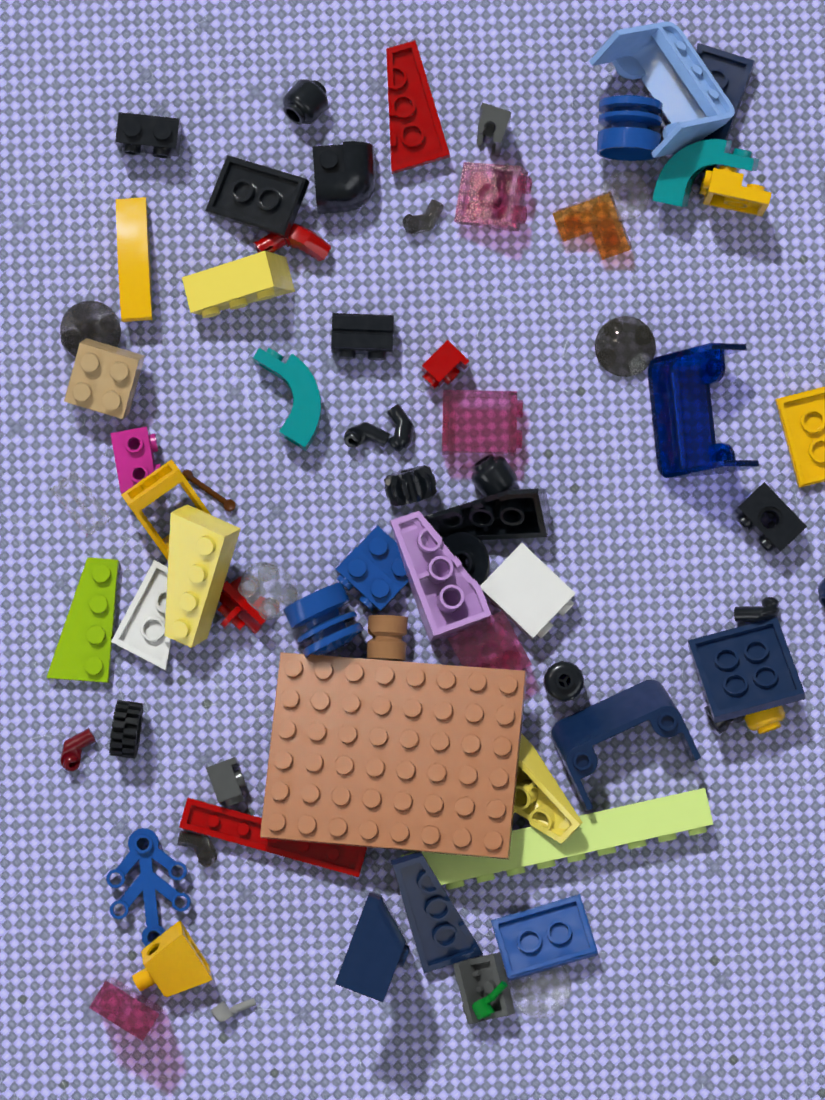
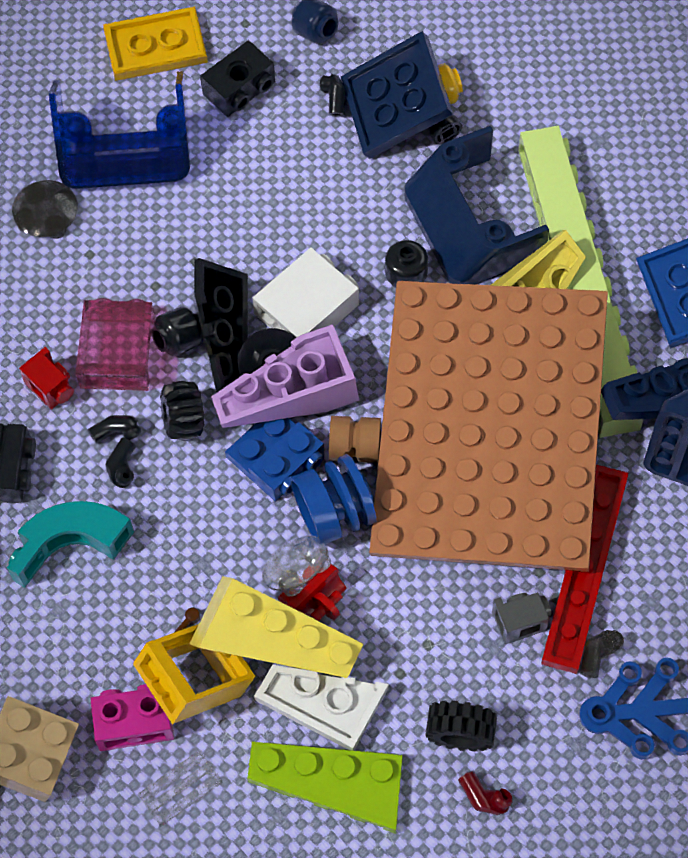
camera: 85 degrees left, 20 degrees down
(490, 645) = (366, 332): clear pink plate -> none

